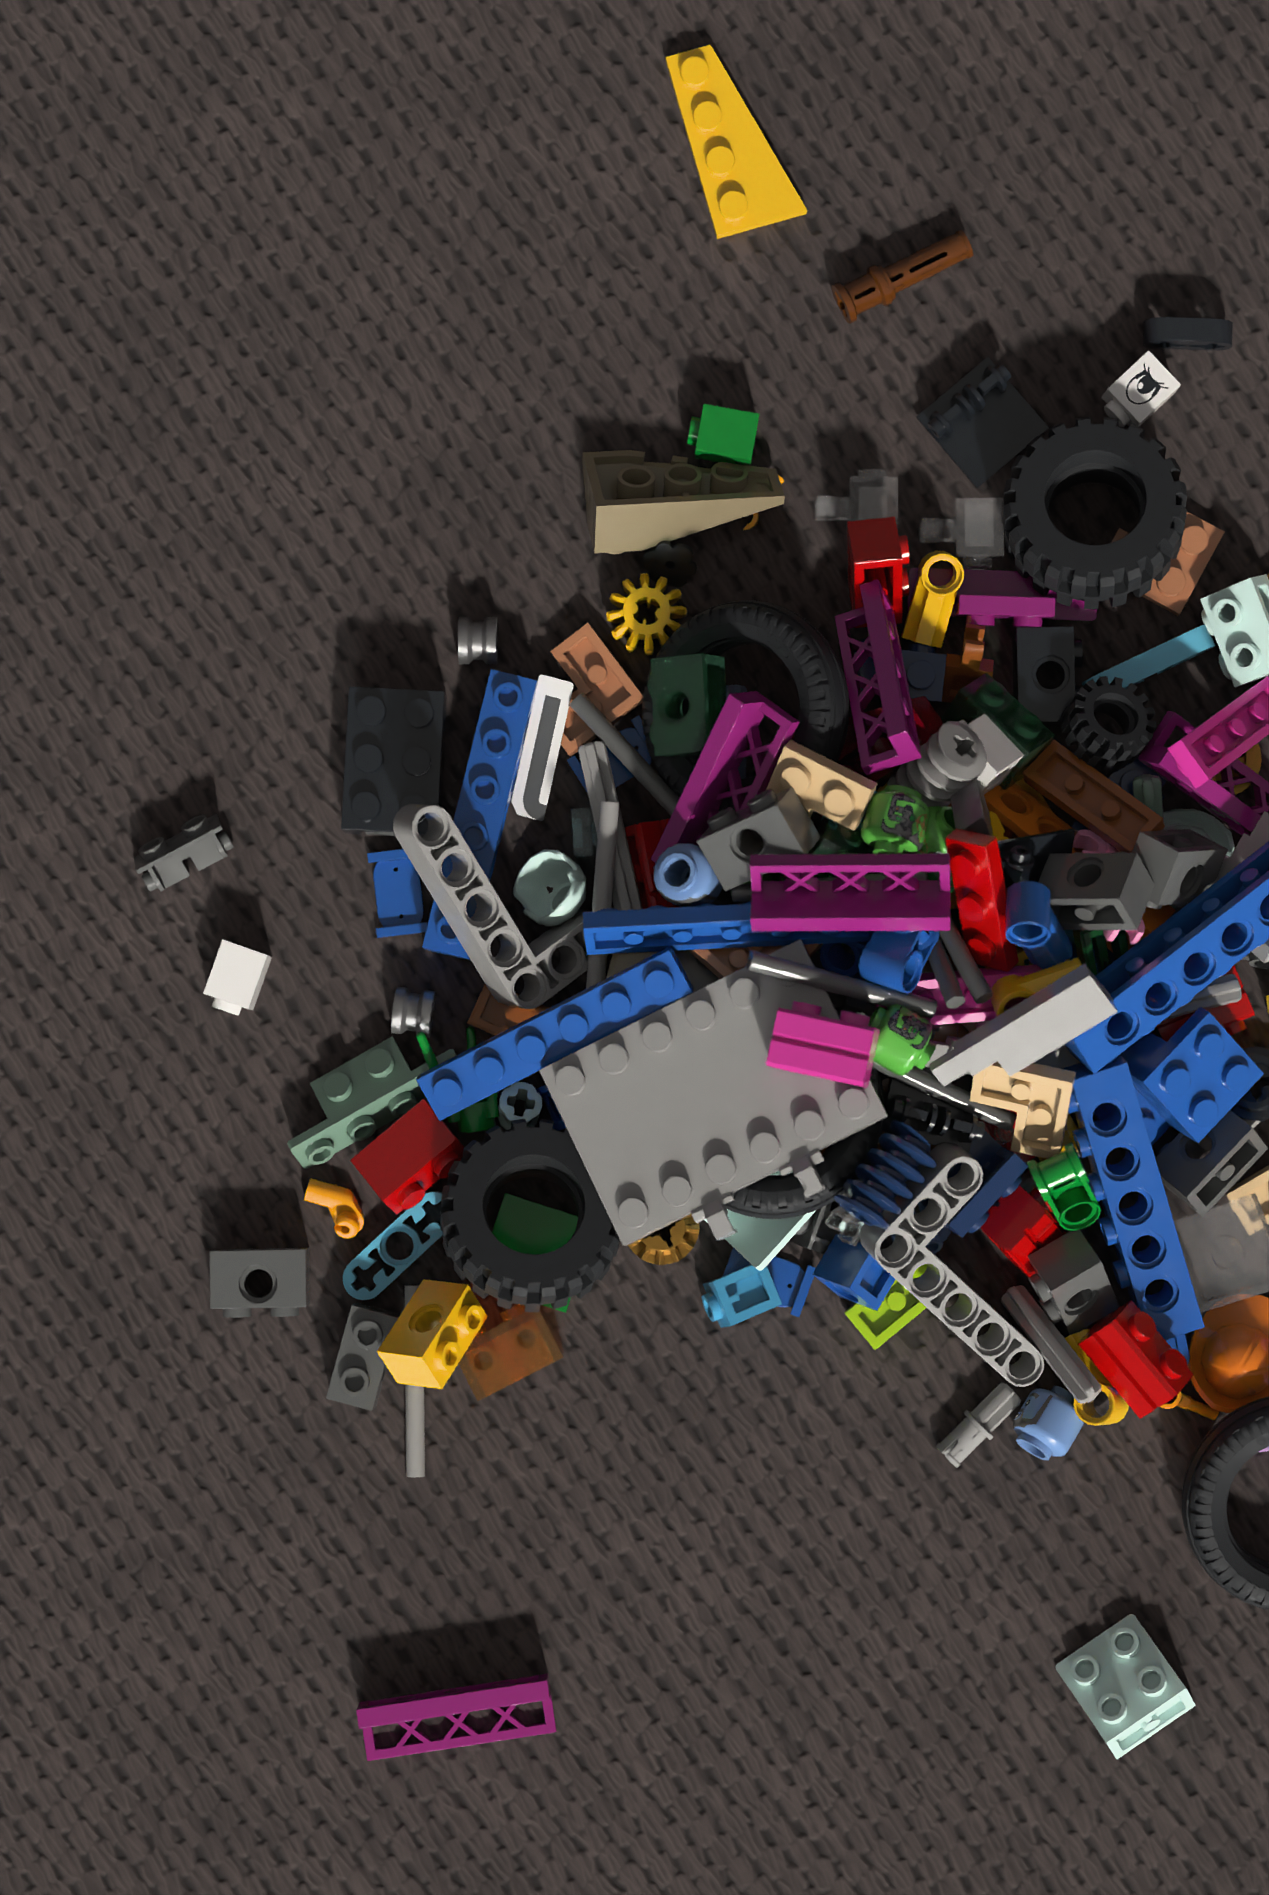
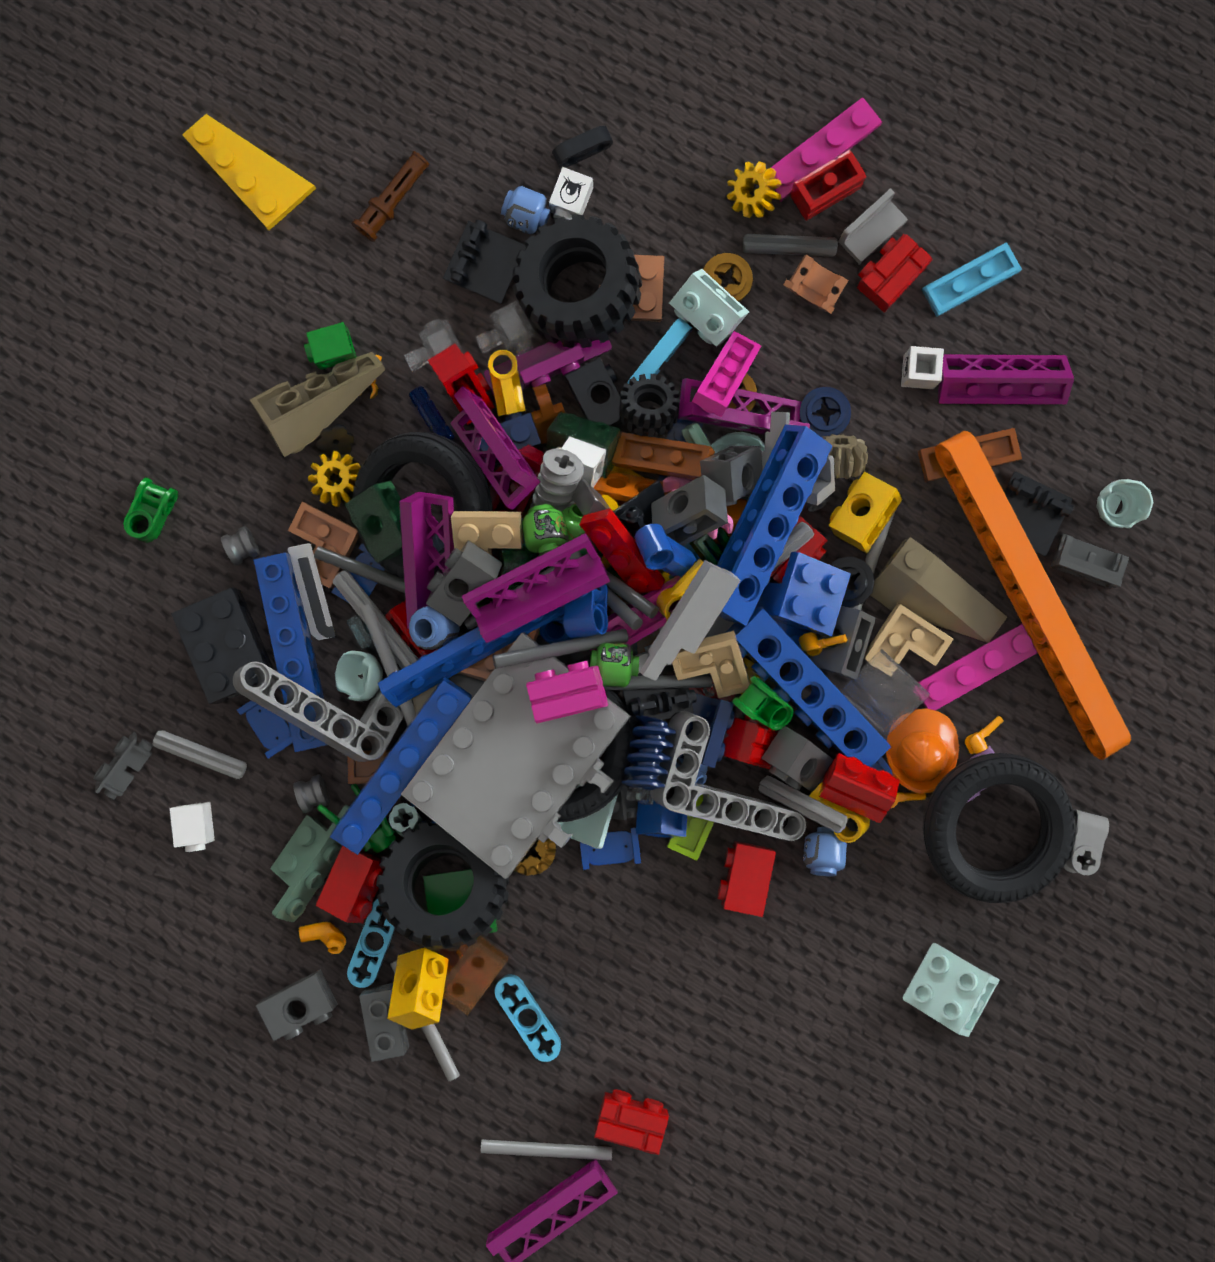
camera: 25 degrees left, 0 degrees up
(289, 888) = (199, 754): none -> light grey axle
(384, 533) = (151, 508): none -> green piece
(490, 1630) = (546, 1149): none -> light grey bar
(567, 1480) = (548, 1033): none -> medium azure beam
(621, 1647) = (632, 1122): none -> red brick
(740, 1296) = (598, 868): dark azure bracket -> none
(812, 587) = (430, 413): none -> clear blue axle
(929, 1405) = (747, 878): none -> red brick
(979, 1424) = (783, 873): light grey axle -> none
(1071, 381) = (525, 210): none -> medium blue head
(1166, 1143) = (813, 646): none -> light orange hand

